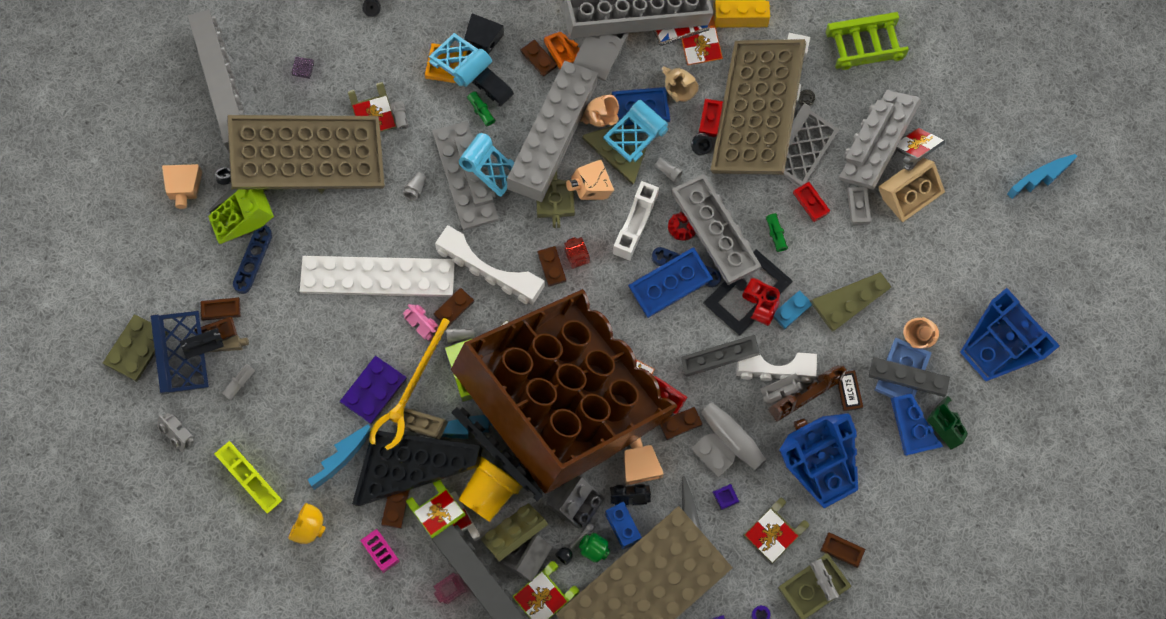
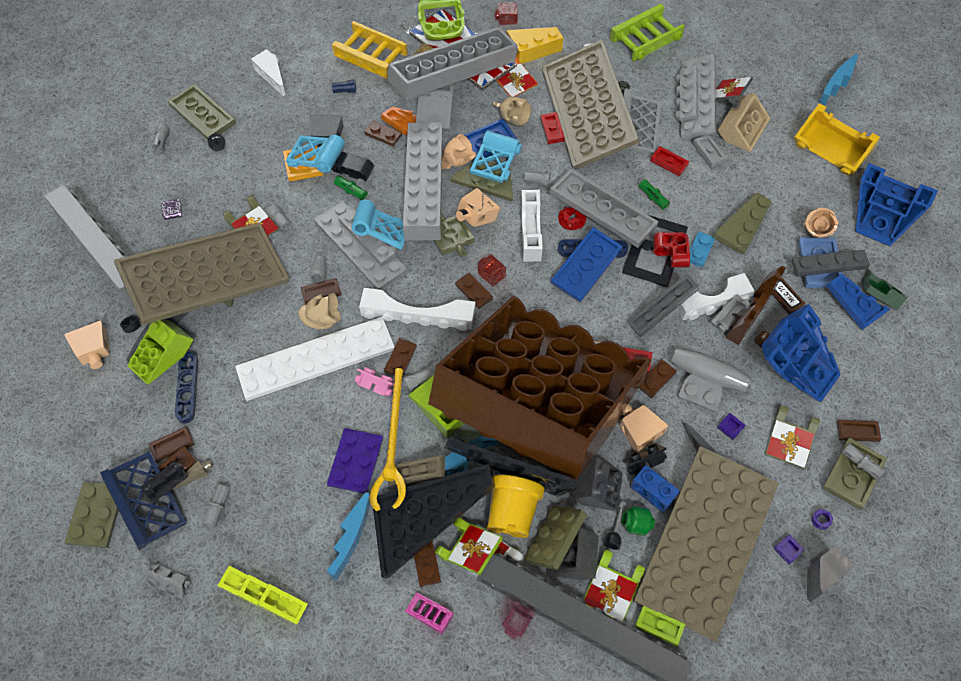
camera: 20 degrees left, 10 degrees down
(308, 525) = (345, 617): yellow cylinder -> none
(399, 233) = (320, 312): none -> tan helmet
(409, 210) = (323, 288): none -> reddish brown tile
(701, 144) = (555, 149): black hat -> none
(993, 246) = (835, 141): none -> yellow windscreen

